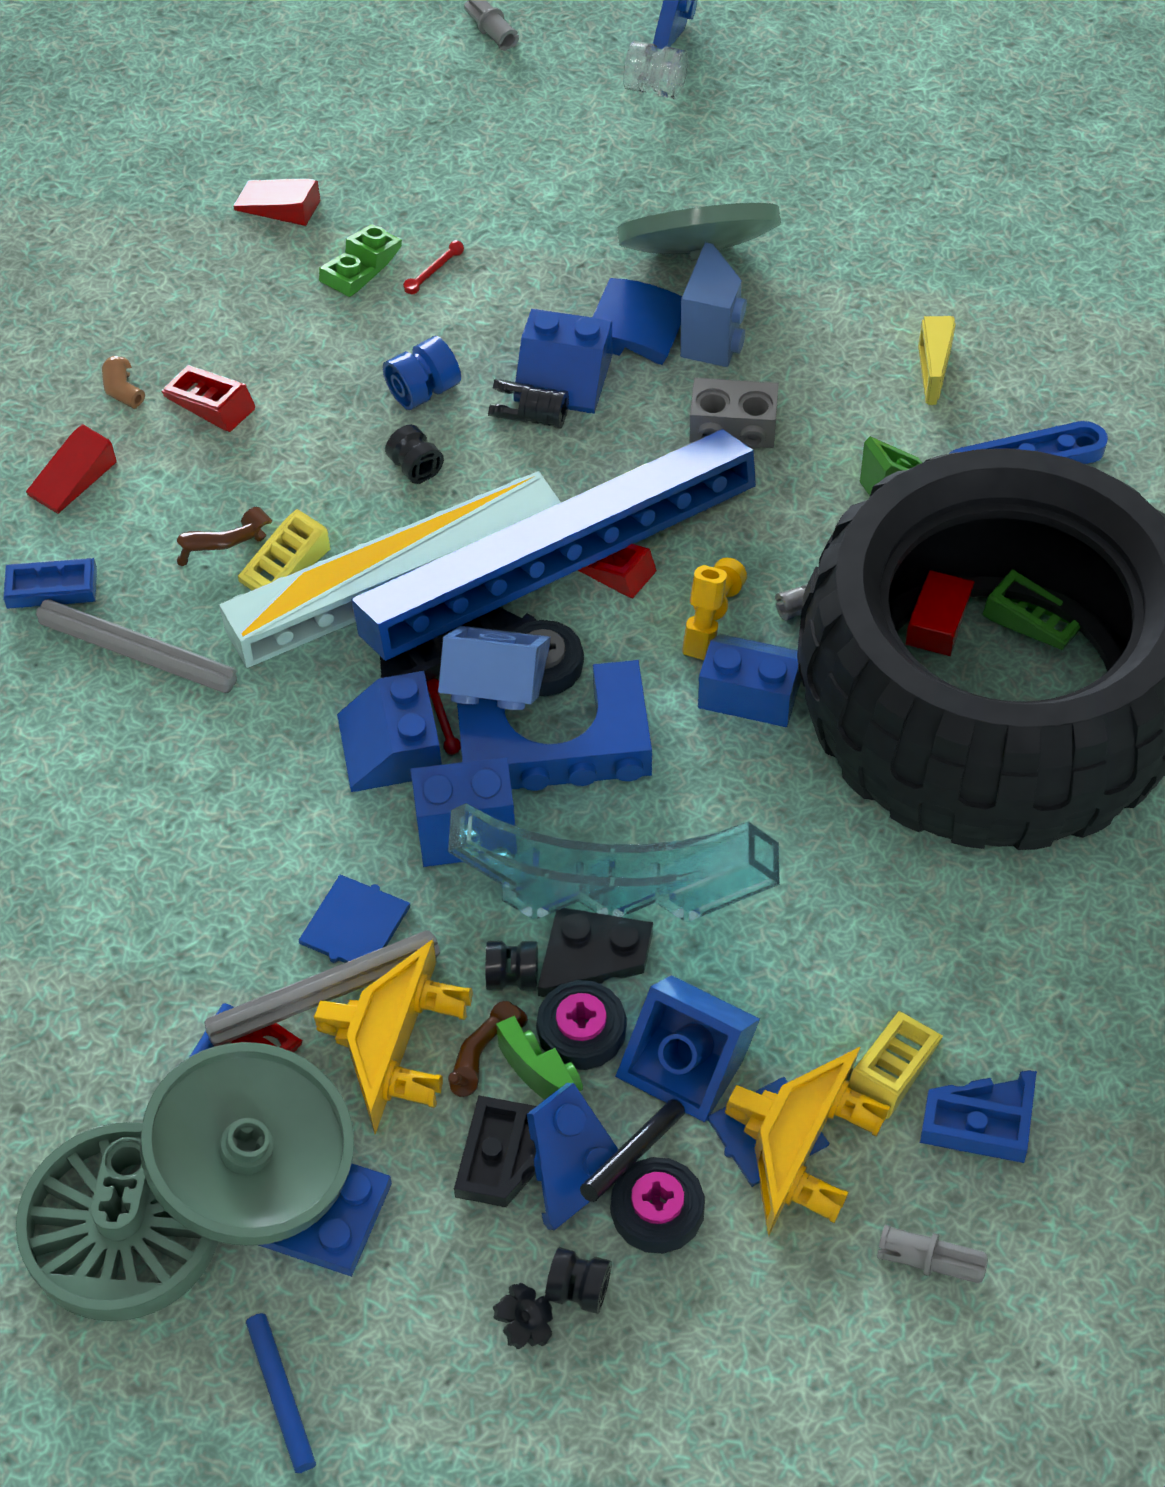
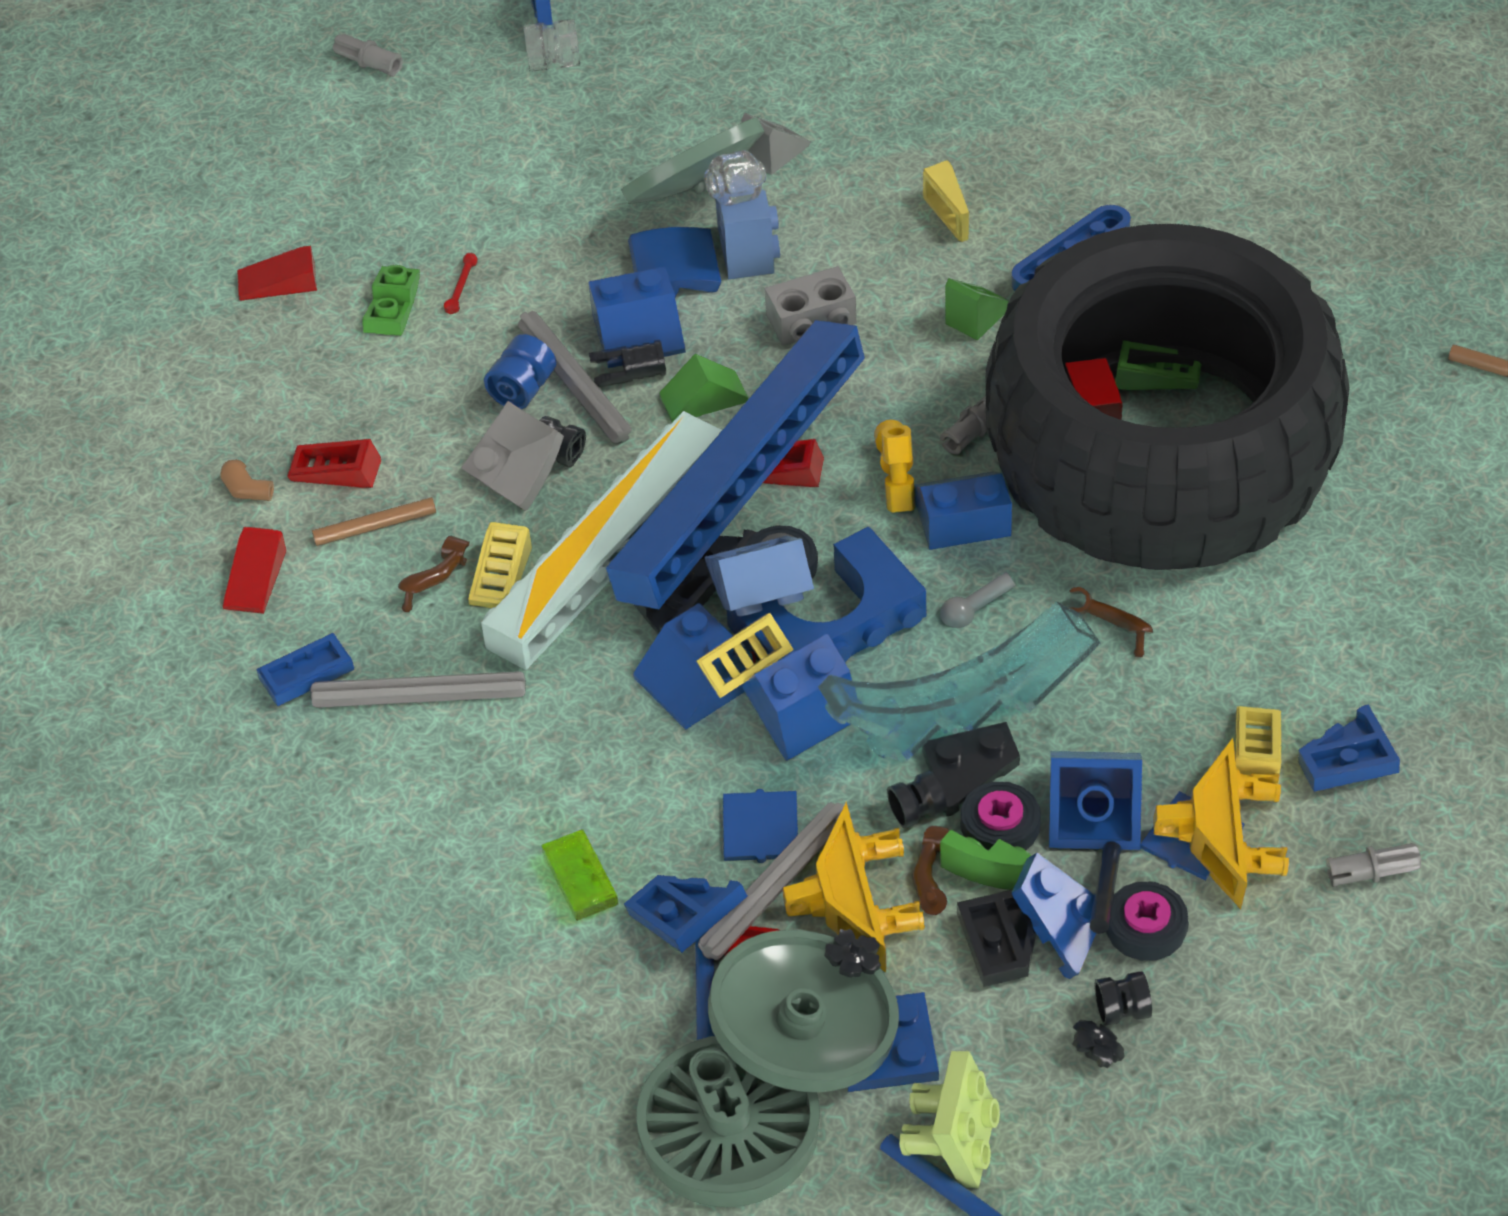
camera: 25 degrees left, 5 degrees down
(152, 897) = (579, 874): none -> clear neon green plate
(207, 465) = (374, 521): none -> medium nougat bar
(215, 978) = (683, 908): none -> blue wing
(322, 1338) = (962, 1120): none -> yellowish green plate
(333, 1105) = (853, 954): none -> black plant
(362, 453) = (515, 455): none -> light grey plate
(466, 734) = (773, 635): none -> light yellow slope
(473, 398) = (578, 380): none -> light grey axle
(582, 455) = (702, 389): none -> bright green slope
(685, 785) = (960, 611): none -> light grey bar
(712, 256) = (735, 177): none -> clear head
(802, 237) = (776, 145): none -> light grey slope
(836, 858) = (1116, 617): none -> reddish brown piece

